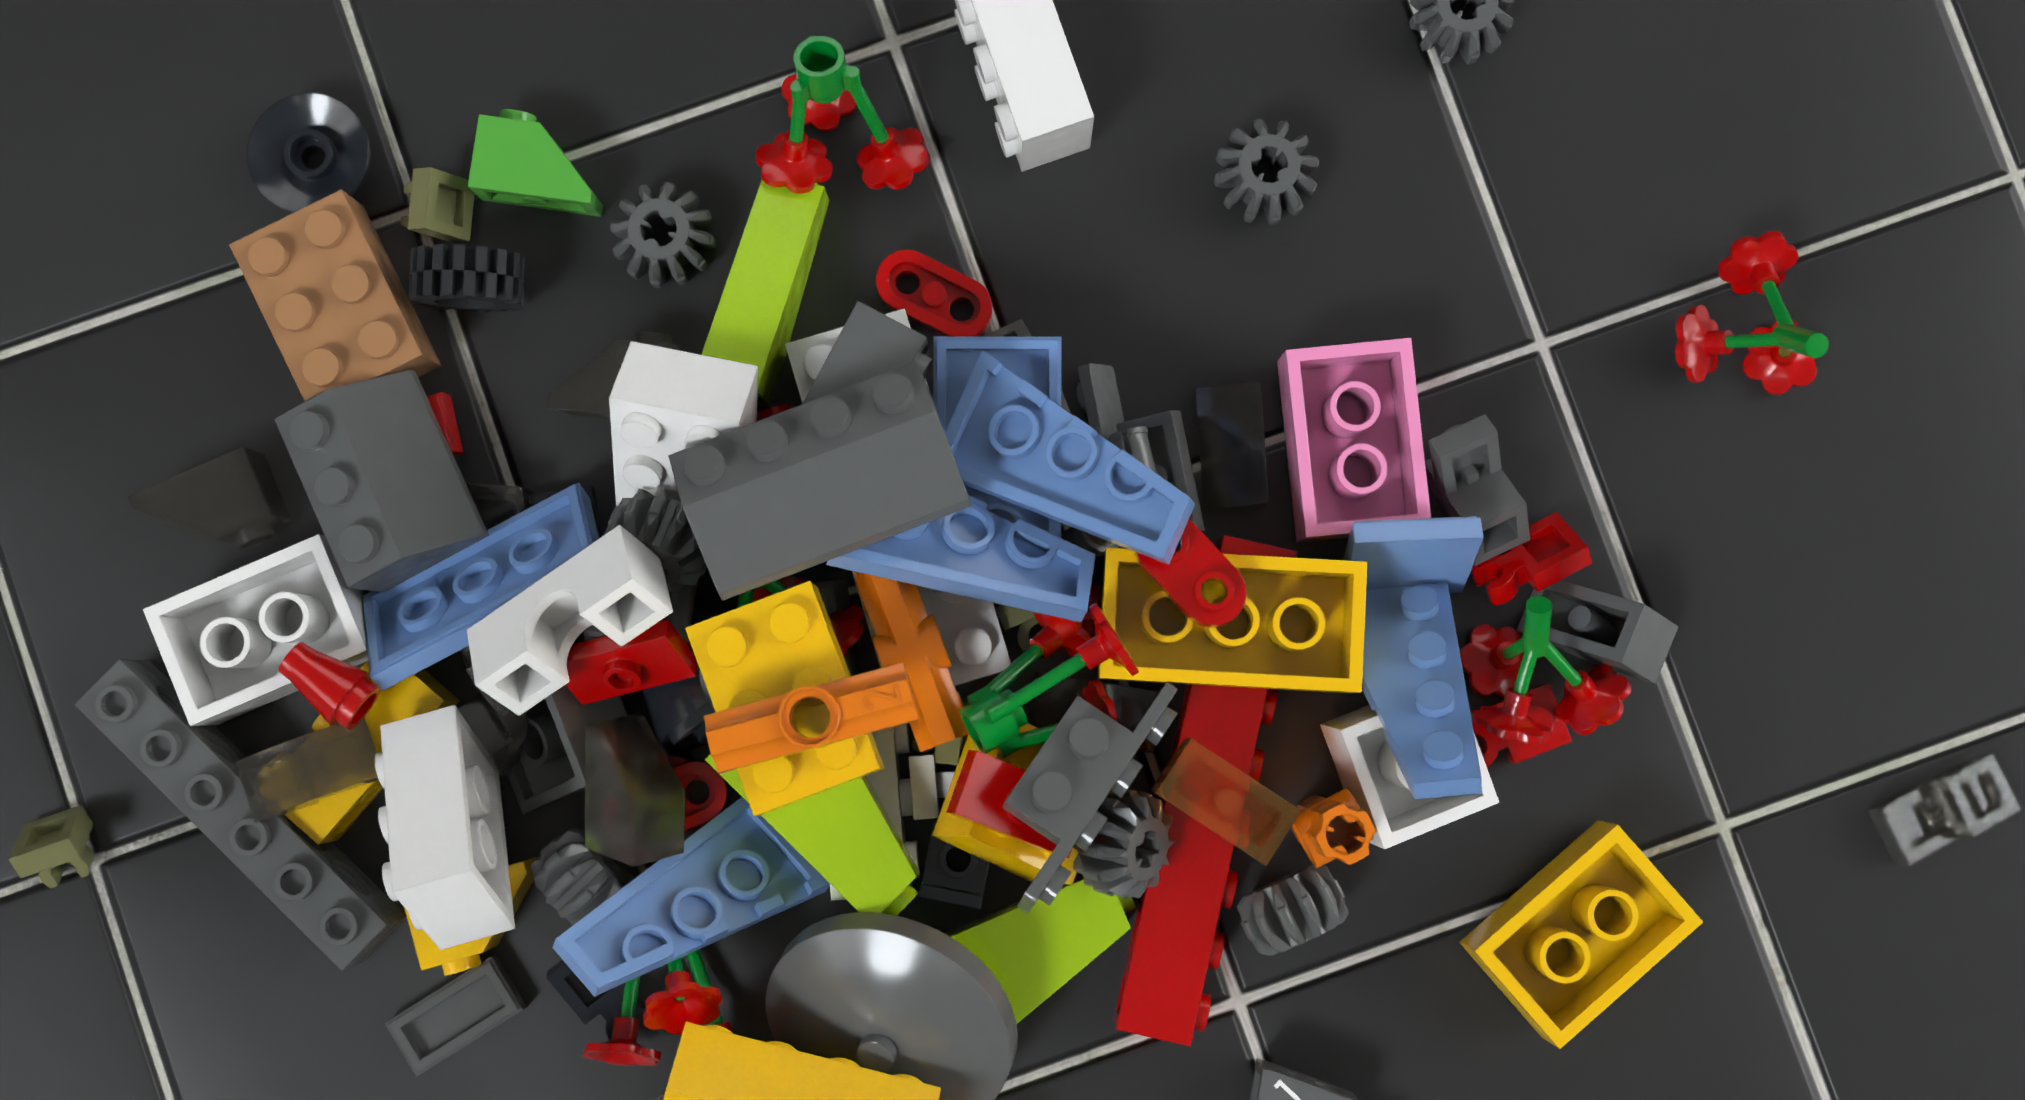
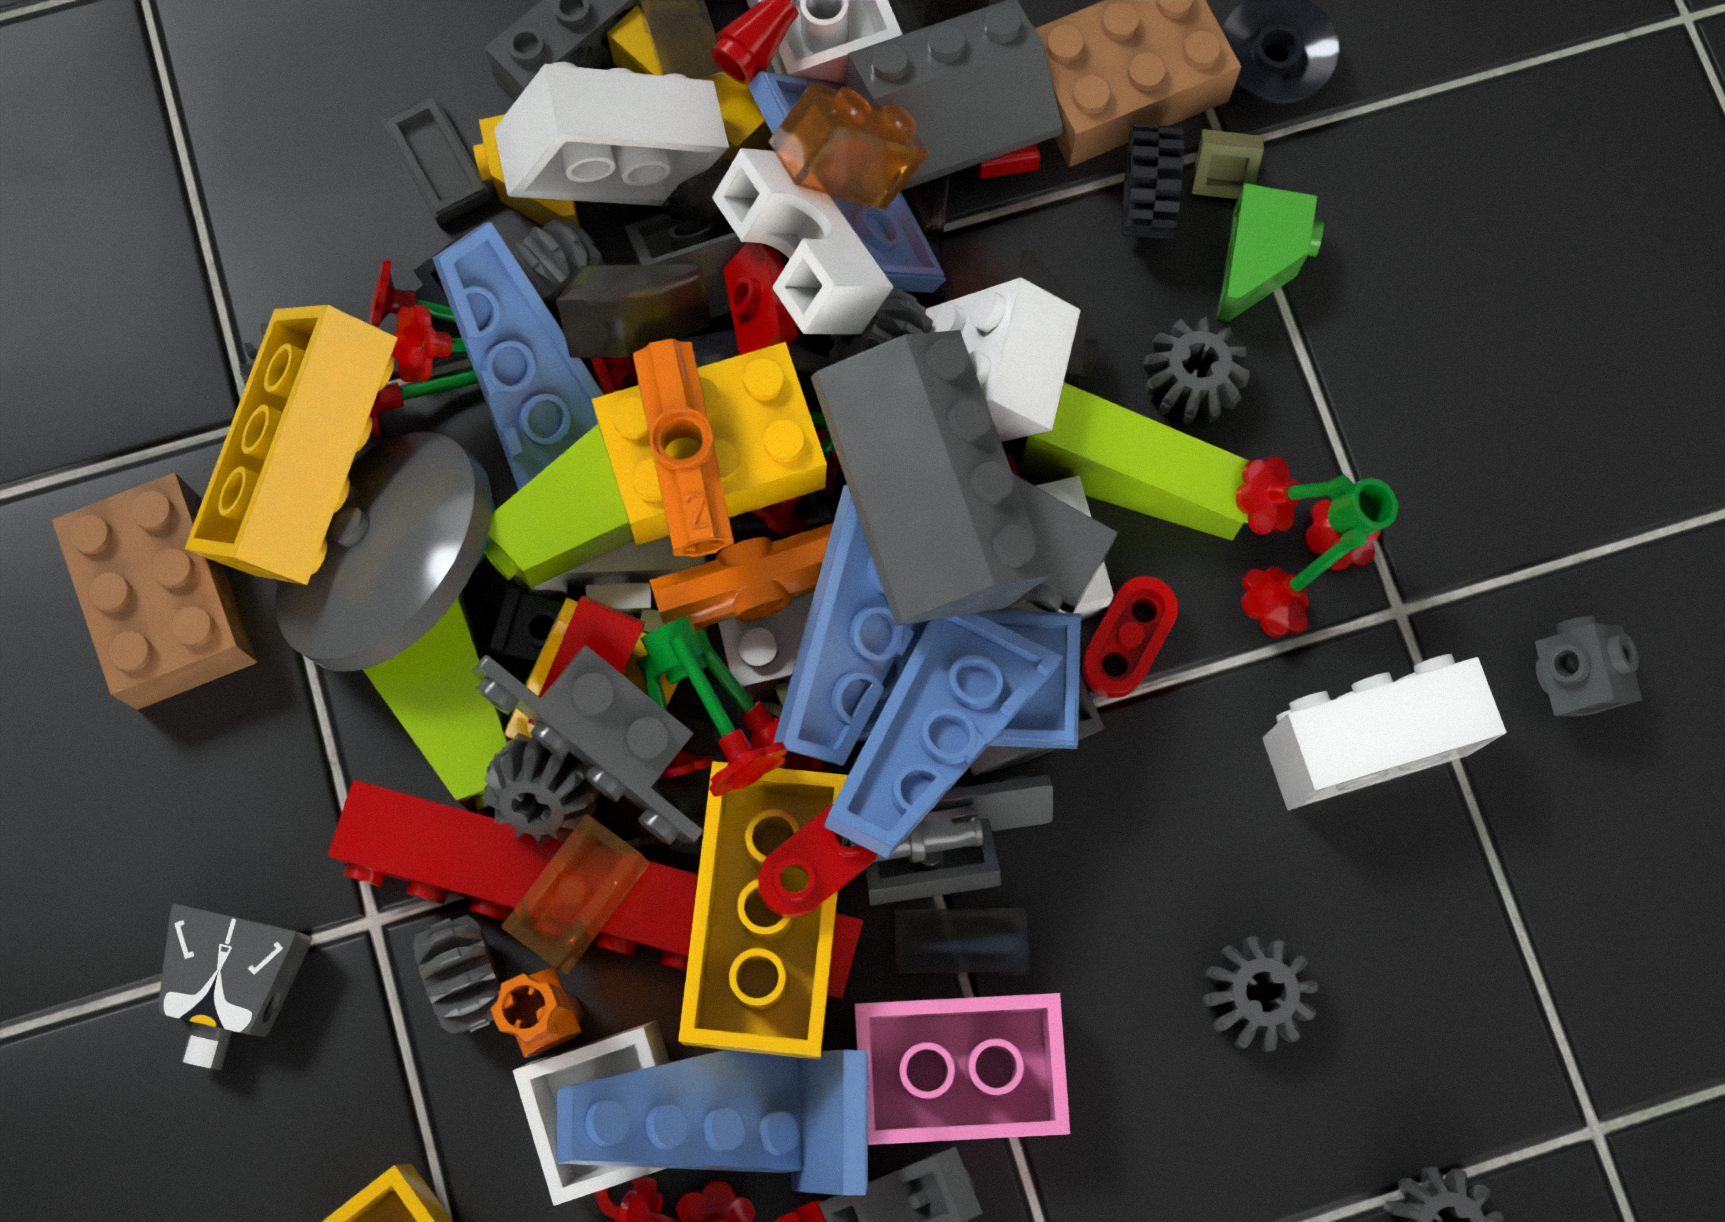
camera: 90 degrees right, 10 degrees down
(462, 578) = (849, 146): none -> clear orange brick

